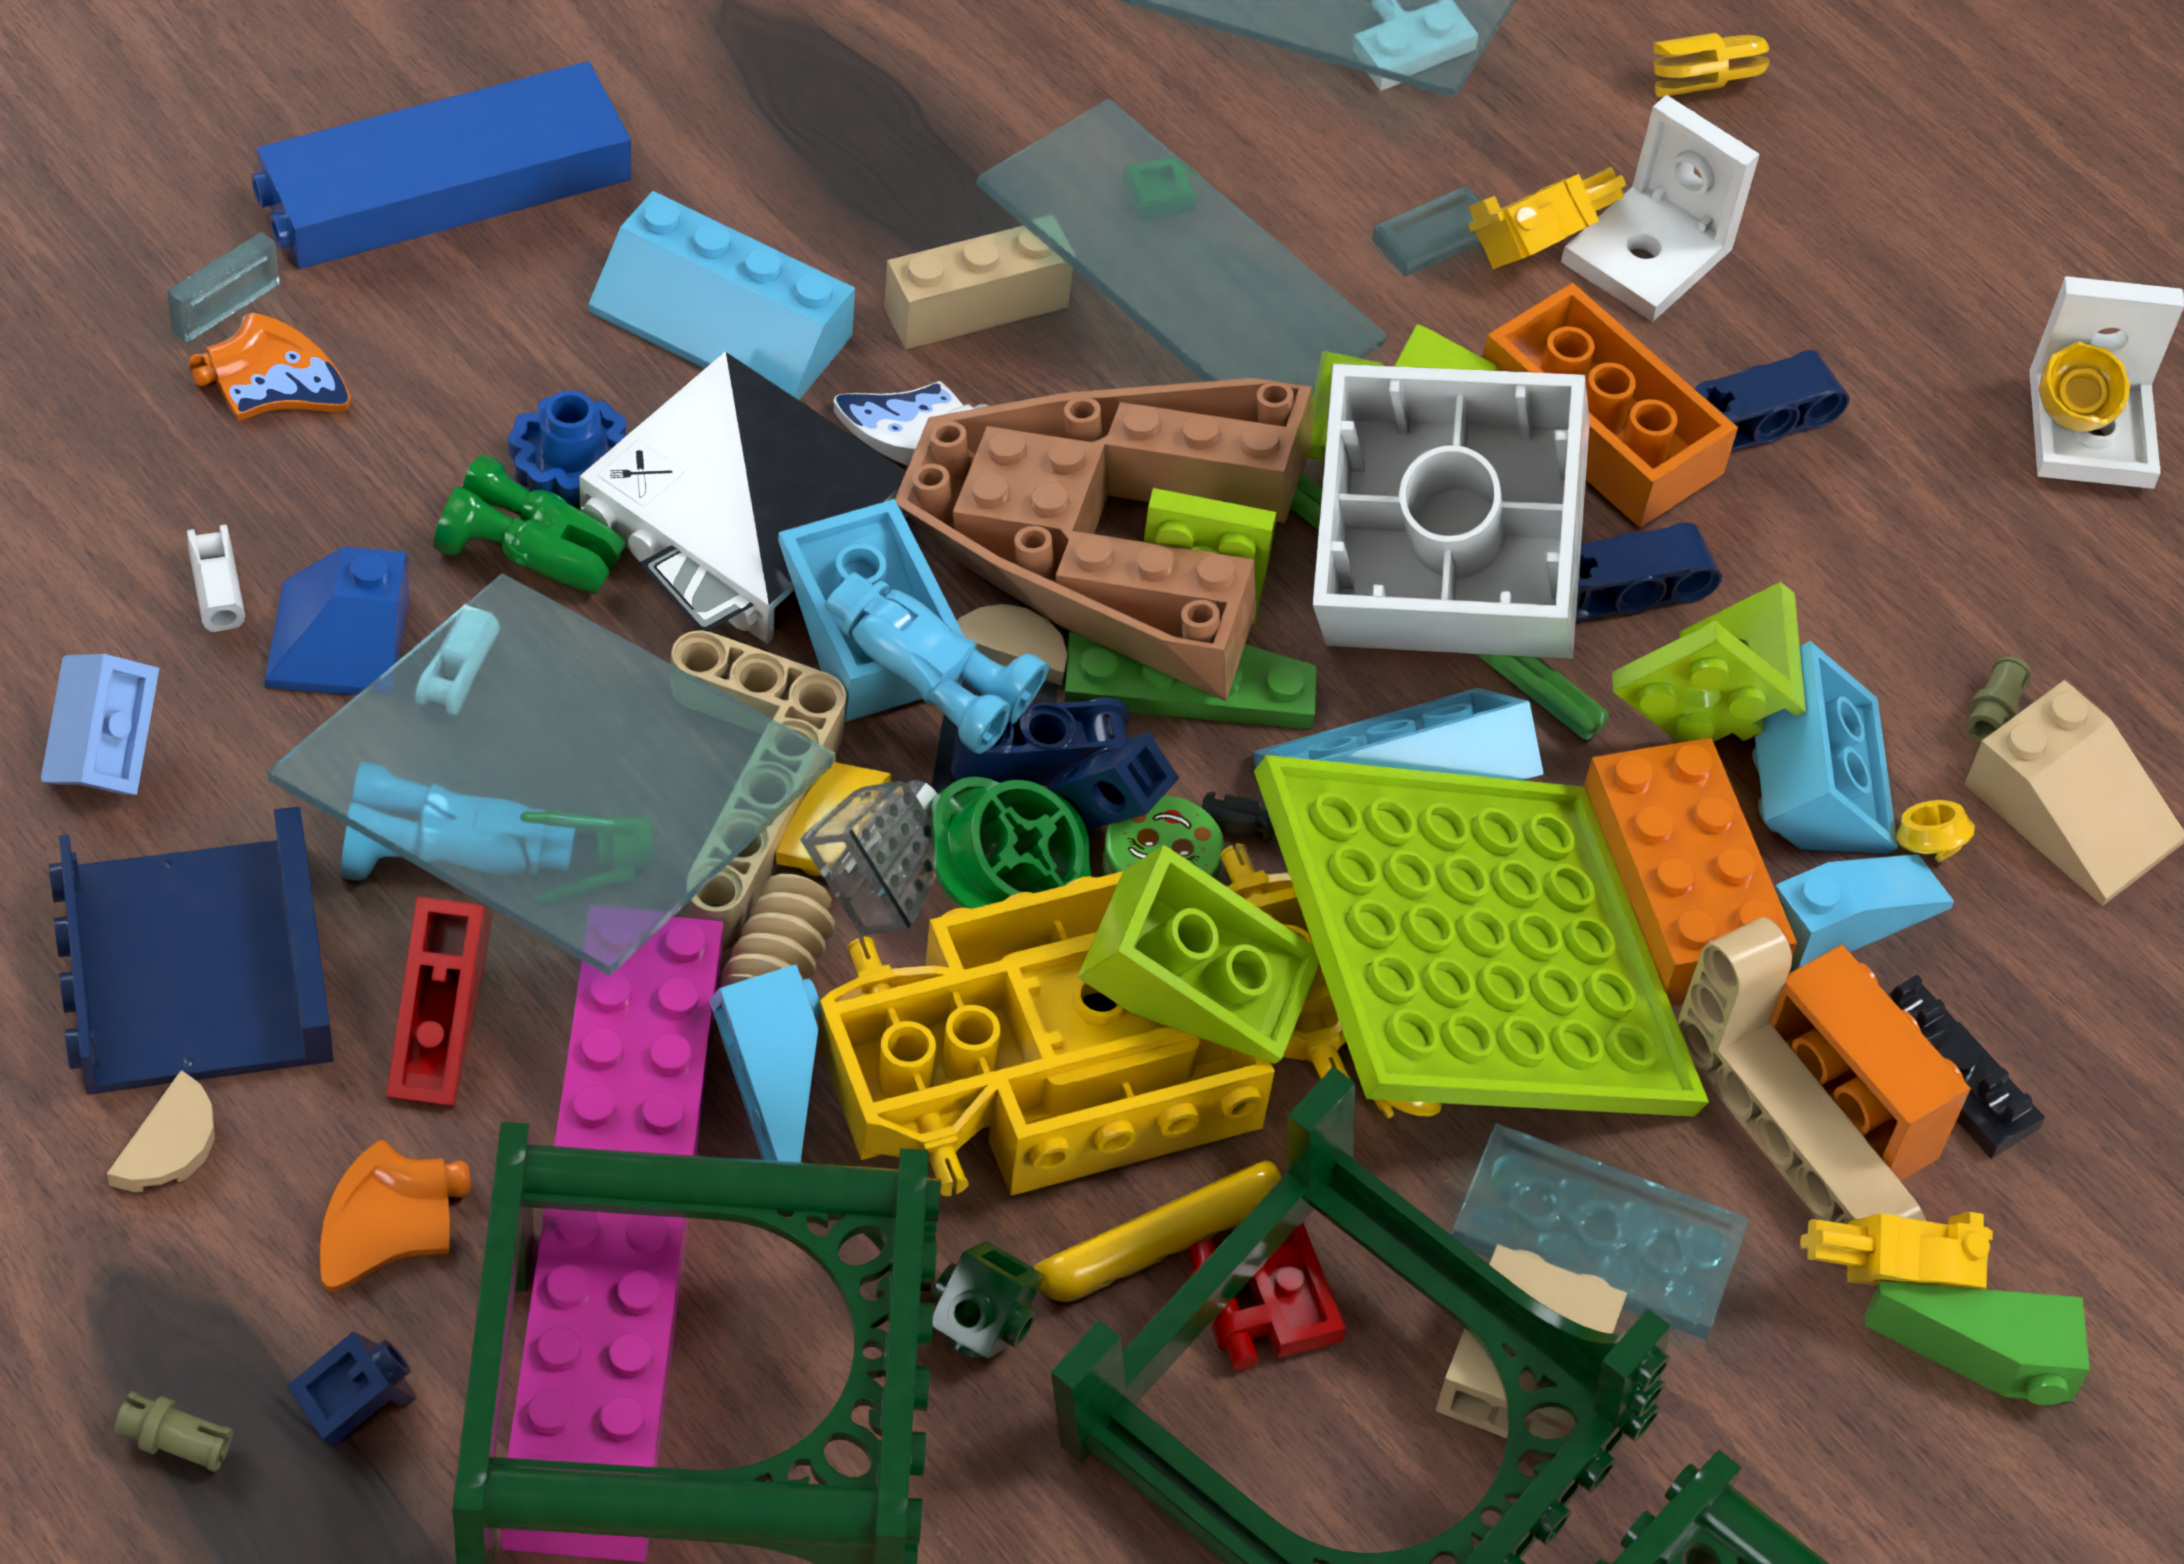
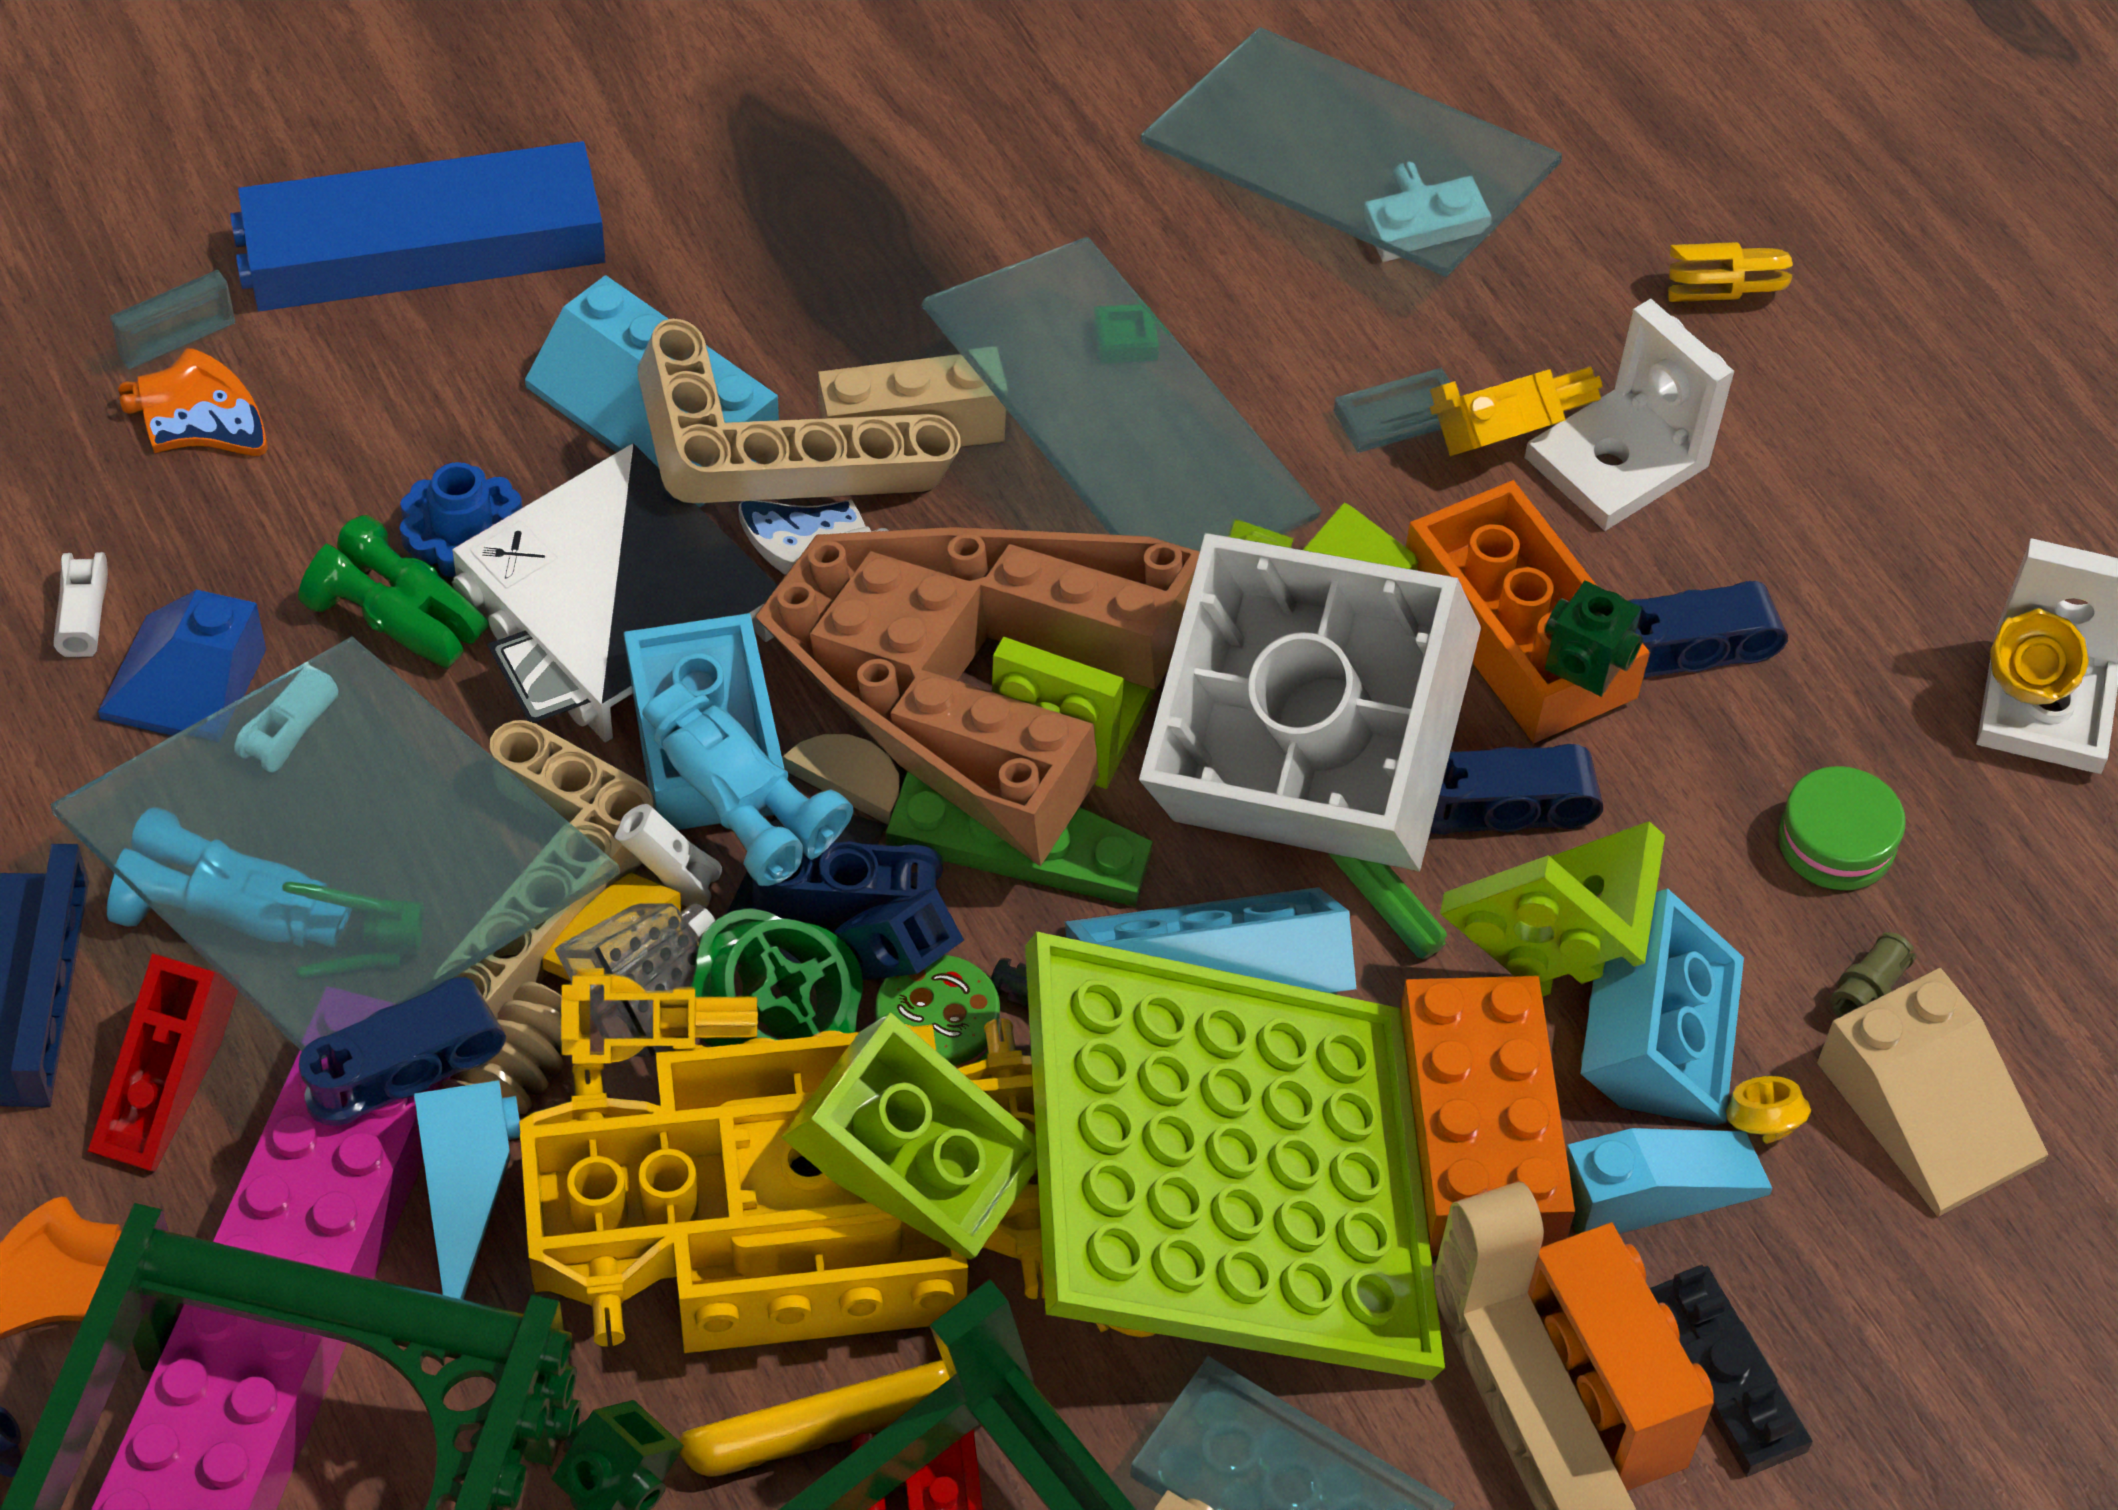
camera: 15 degrees right, 0 degrees up
(688, 953) = (399, 1051): none -> dark blue piece
(864, 351) = (779, 445): none -> tan beam
(870, 736) = (669, 854): none -> white bar
(936, 886) = (676, 1018): none -> yellow piece
(1690, 419) = (1592, 637): none -> dark green brick
(1938, 568) = (1841, 828): none -> bright green head

